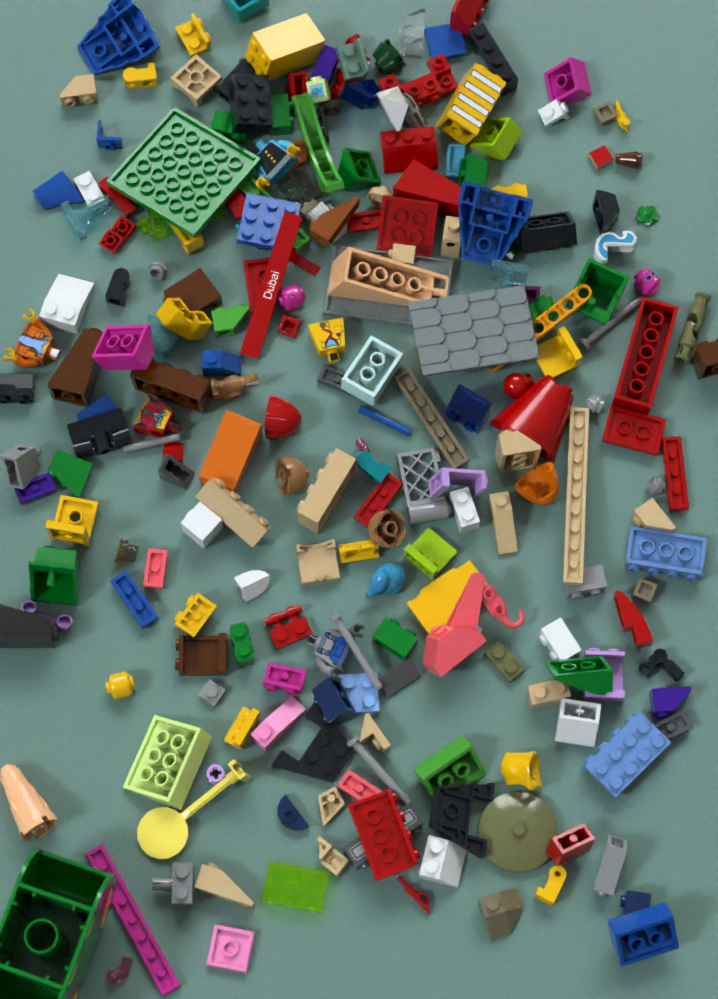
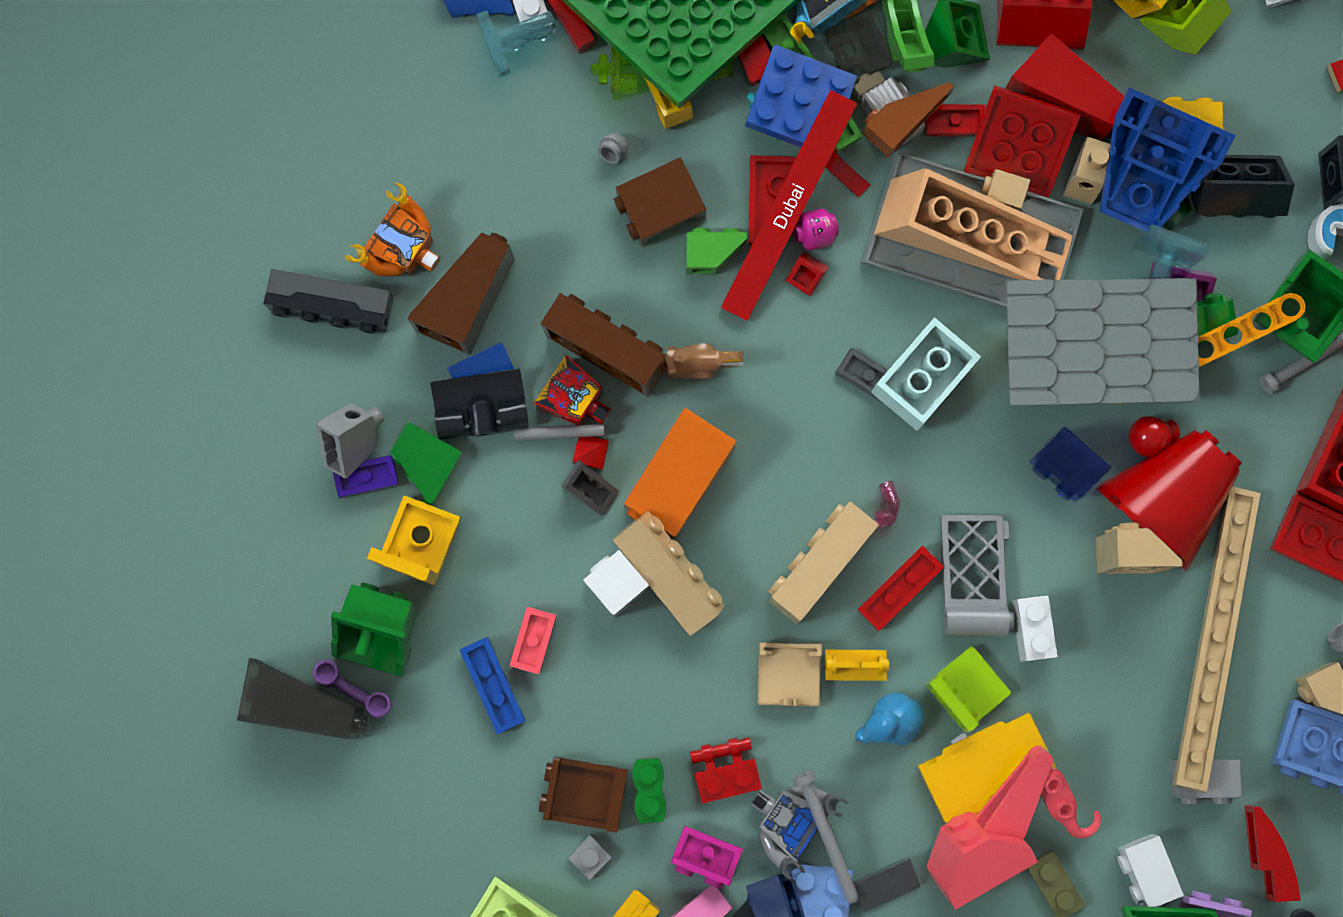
camera: 10 degrees right, 10 degrees up
(66, 303) = (461, 178): white slope -> none
(116, 288) = (541, 171): black leg -> none
(118, 235) = (559, 79): red slope -> none
(120, 685) = (449, 822): yellow head -> none
(124, 348) = (539, 279): dark pink slope -> none
(125, 551) = (490, 606): clear smoke piece -> none
(163, 338) = (601, 261): clear light blue slope -> none
(179, 319) = (636, 242): yellow brick -> none
(195, 614) = (581, 729): yellow bracket -> none
(220, 363) = (688, 320): blue slope -> none
(252, 583) = (680, 690): white brick -> none
(282, 418) = (770, 430): red hair -> none
(291, 474) = (771, 525): medium nougat cylinder -> none
(328, 338) = (865, 307): yellow torso -> none
(370, 467) = (893, 528): teal leg -> none
(376, 195) = (982, 81): tan plate -> none
(384, 420) = (931, 456): blue bar -> none
(387, 528) = (907, 641): medium nougat cylinder -> none
(395, 638) = (890, 821): green brick -> none
(431, 419) = (1005, 468): dark tan plate -> none
(445, 477) = (1009, 583): lavender panel -> none
(455, 153) = (1113, 43): medium azure tile -> none
(473, 170) = (1139, 67): green brick -> none
(503, 522) = (1091, 659): tan slope -> none
(539, 484) = (1161, 607): orange hair -> none
(559, 354) = (1228, 395): yellow bracket -> none
(595, 403) = (1271, 487): light grey plate -> none
(644, 590) = (1298, 809): dark tan plate -> none

